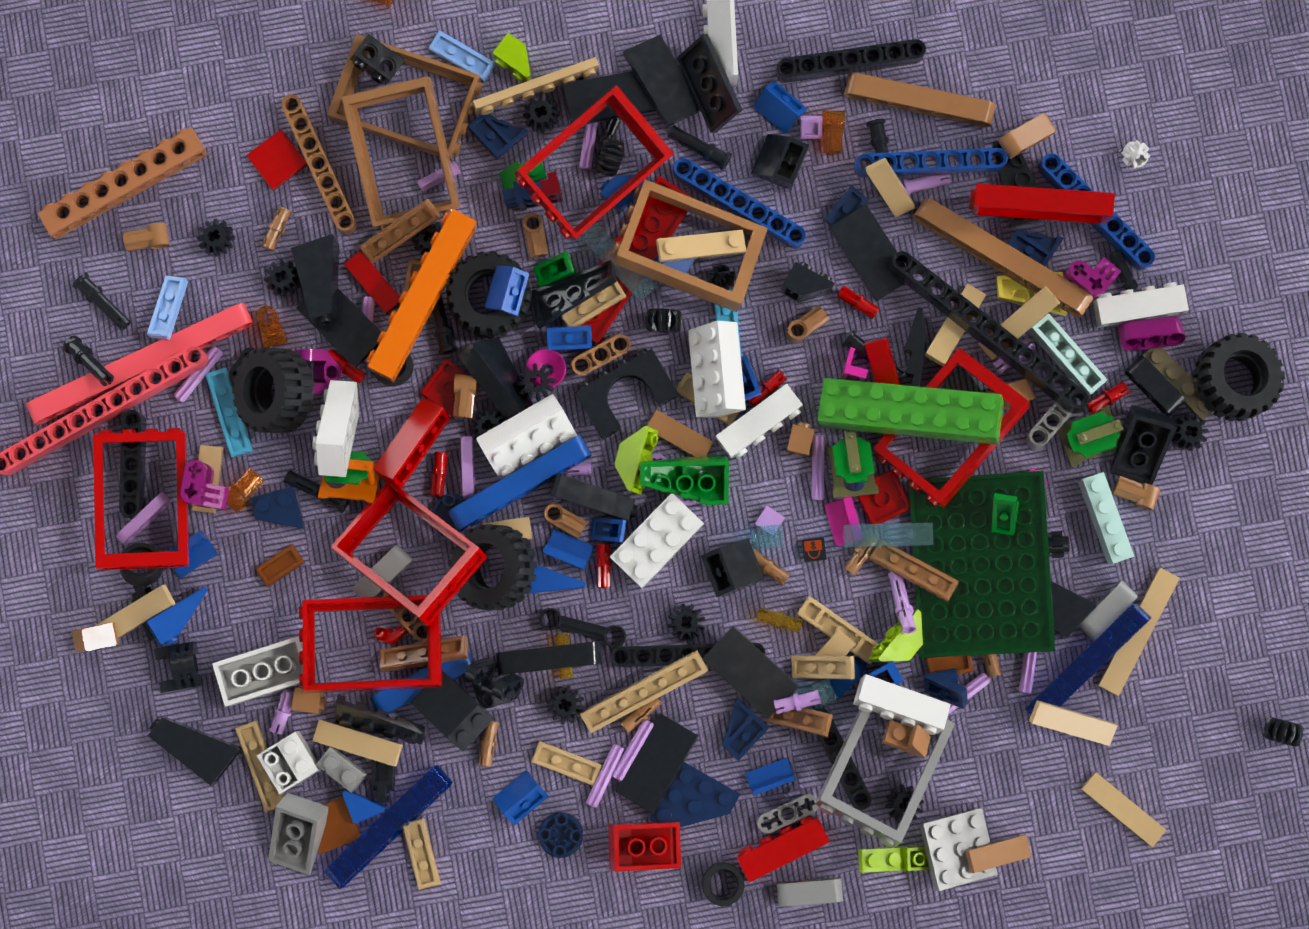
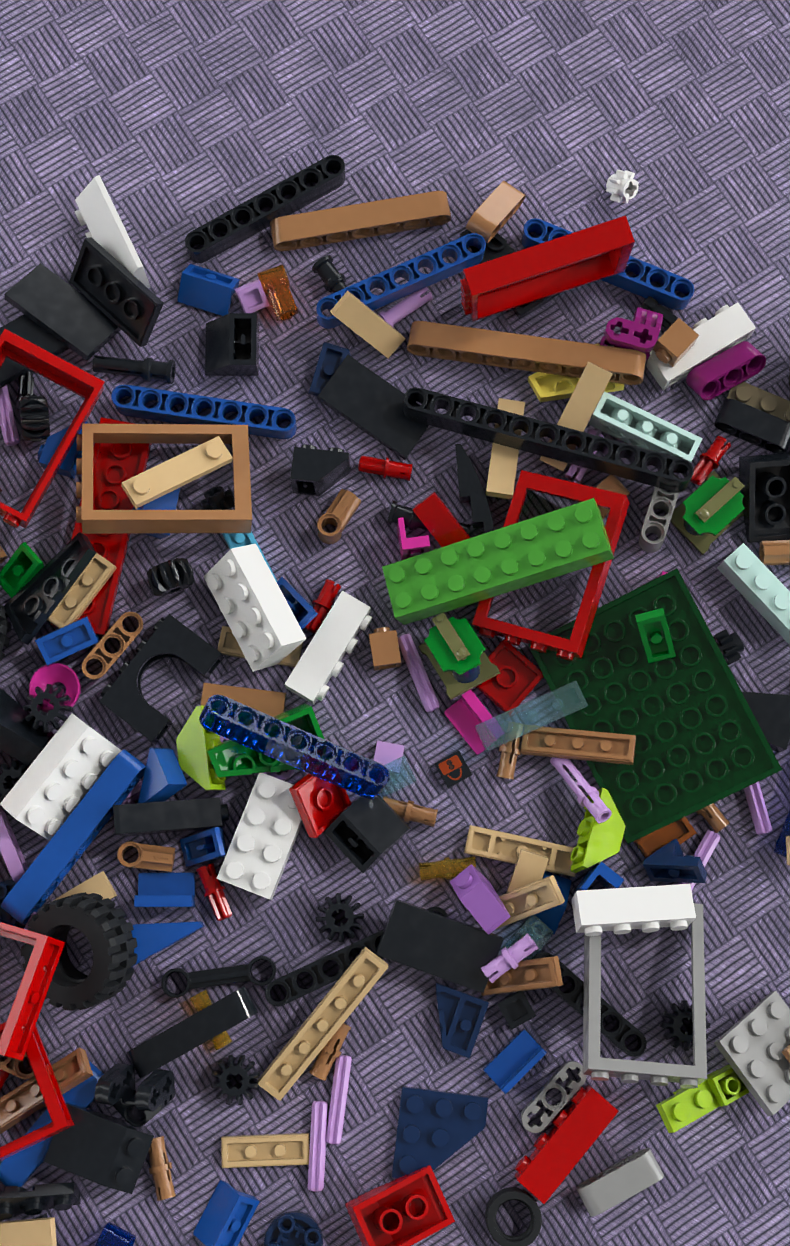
camera: 30 degrees left, 5 degrees down
(599, 466) = (161, 776): none -> blue slope
(603, 246) = (117, 545): clear light blue tile -> none
(657, 763) = (374, 1104): black tile -> none
(708, 530) = (318, 803): none -> red tile
(715, 495) = (283, 742): none -> clear blue beam
(786, 741) = (516, 1009): none -> black plate
(794, 651) = (480, 898): none -> medium lavender slope
(908, 739) = (657, 947): medium nougat slope -> none
(1035, 245) = (556, 325): dark blue wing -> none
(1119, 297) = (675, 342): none -> medium nougat brick

